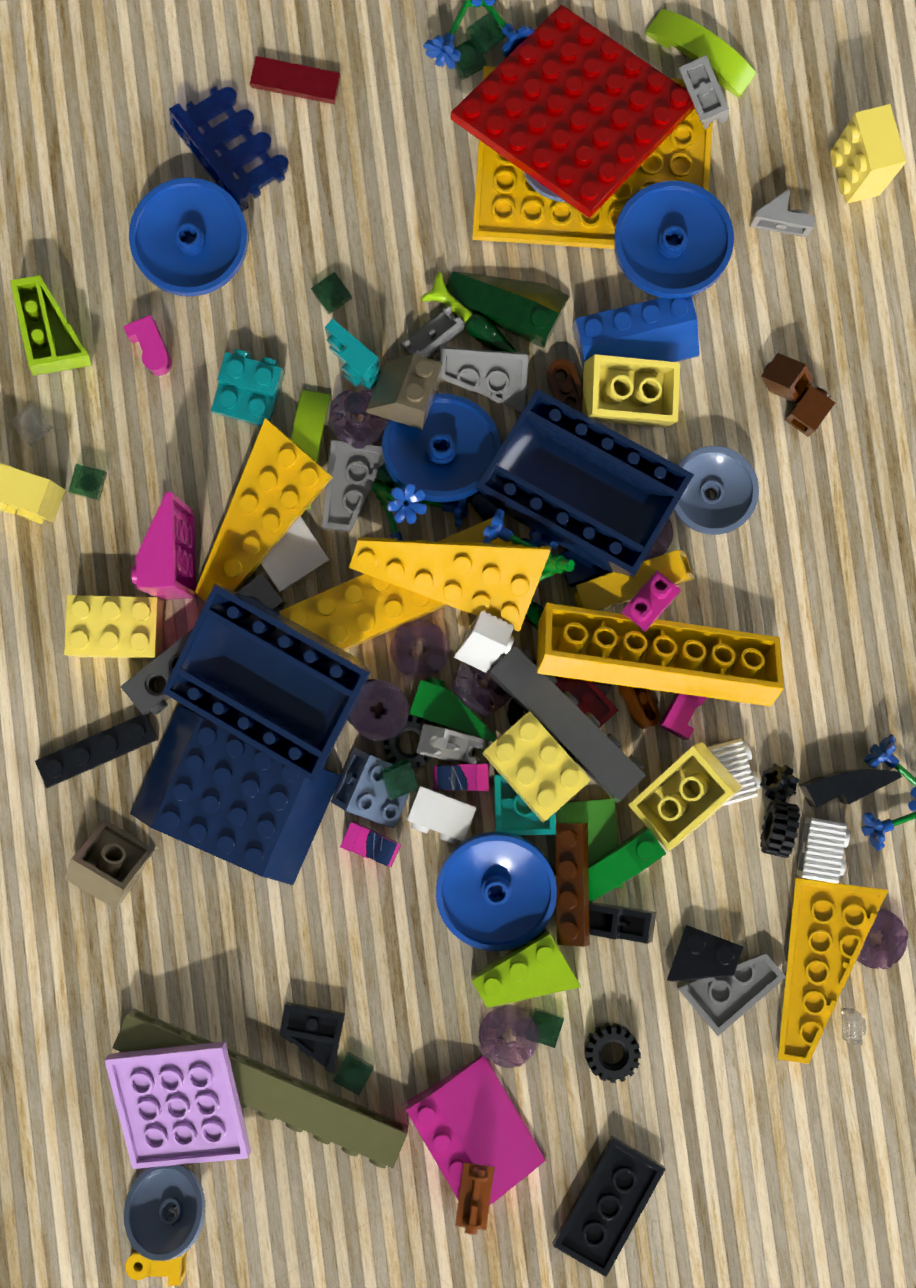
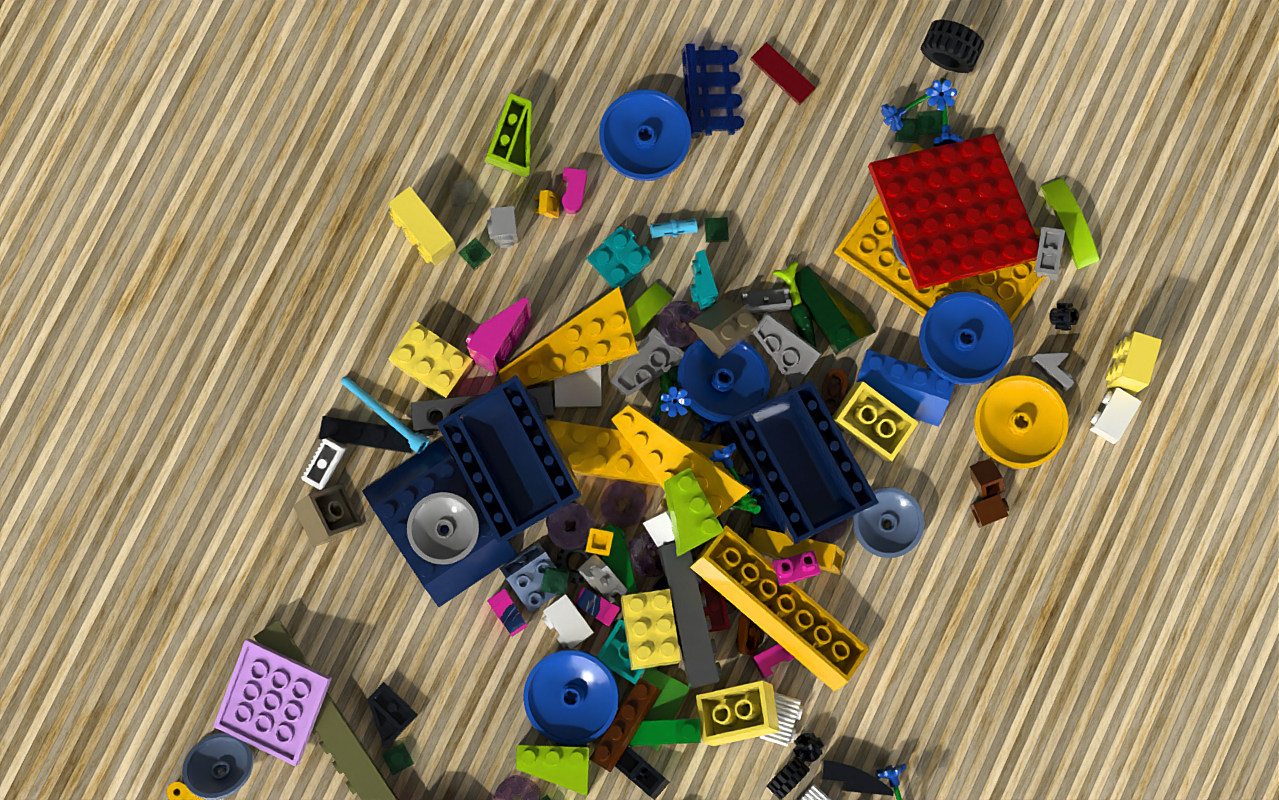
camera: 35 degrees right, 5 degrees down
(68, 812) = (323, 463): none -> white brick
(97, 432) = (503, 226): none -> light grey brick
(132, 378) = (548, 204): none -> yellow tile
(156, 723) = (417, 441): none -> medium azure piece
(220, 808) = (426, 523): none -> light grey dish
(284, 319) = (673, 228): none -> medium azure pin
(421, 708) = (599, 542): none -> yellow tile
(501, 615) = (690, 512): none -> lime wedge
(758, 153) = (1064, 316): none -> black gear
(785, 294) = (1021, 422): none -> yellow dish
(877, 226) = (1115, 415): none -> white brick

